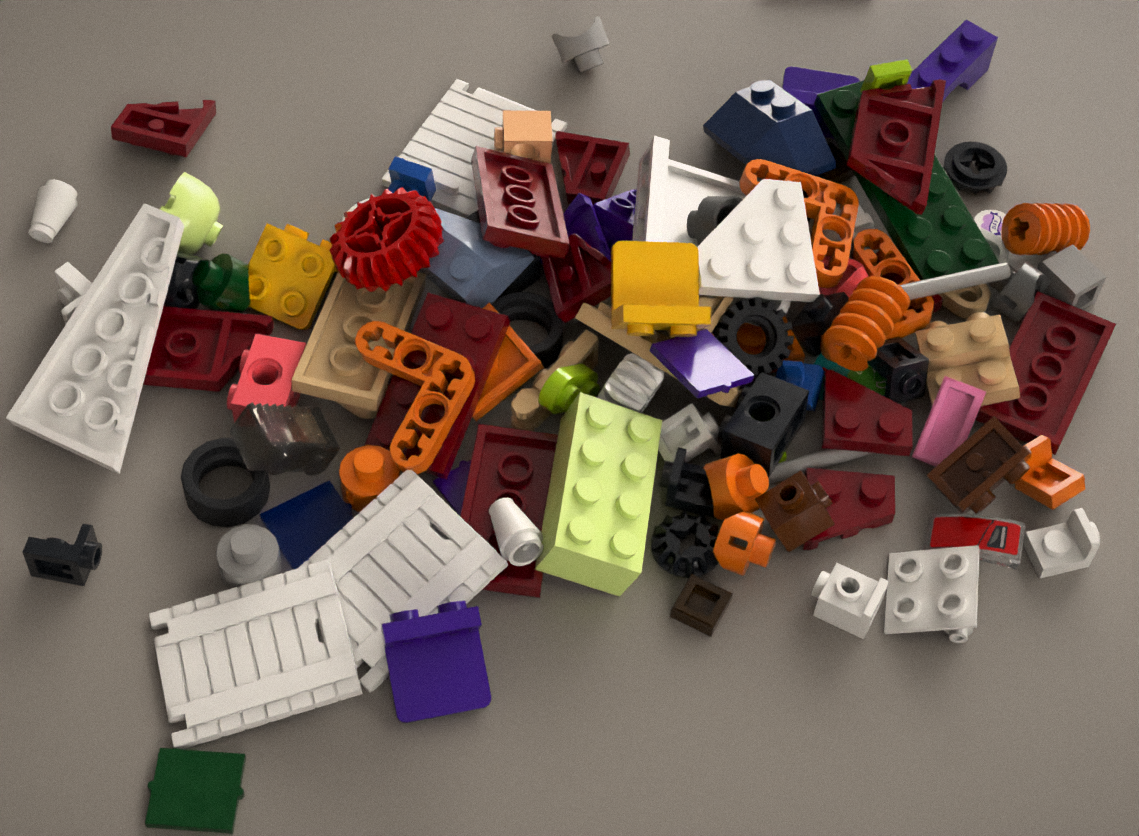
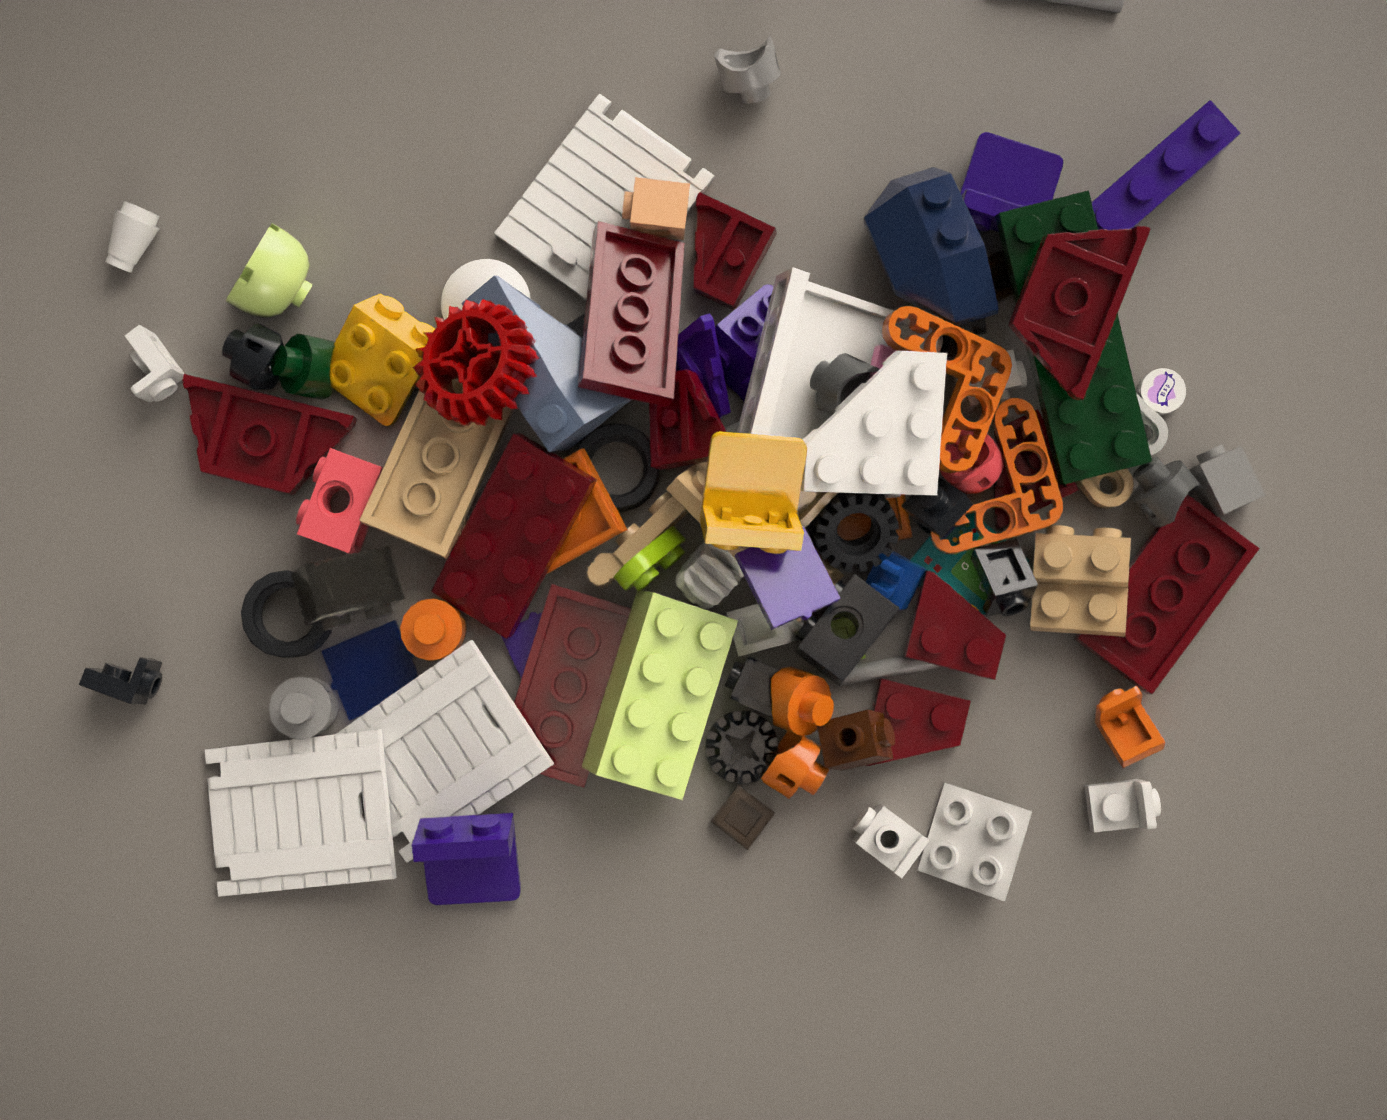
camera: 10 degrees right, 30 degrees up
(97, 366) = (166, 456): white wing -> none
(163, 126) = (260, 127): dark red wing -> none
(195, 790) = (236, 941): dark green piece -> none
(411, 177) = (523, 255): blue tile -> none
(430, 378) = (500, 543): orange beam -> none
(515, 533) = (565, 732): white cone -> none
(865, 322) = (978, 536): orange piece -> none
(887, 75) = (1081, 219): lime tile -> none
(948, 421) = (1042, 654): bright pink tile -> none
(957, 281) = (1087, 490): light grey bar -> none
(980, 467) = (1060, 720): reddish brown bracket -> none
(987, 159) = (1182, 292): black gear -> none
(998, 538) = (1033, 787): slope -> none
(1044, 228) = (1216, 418): orange piece -> none

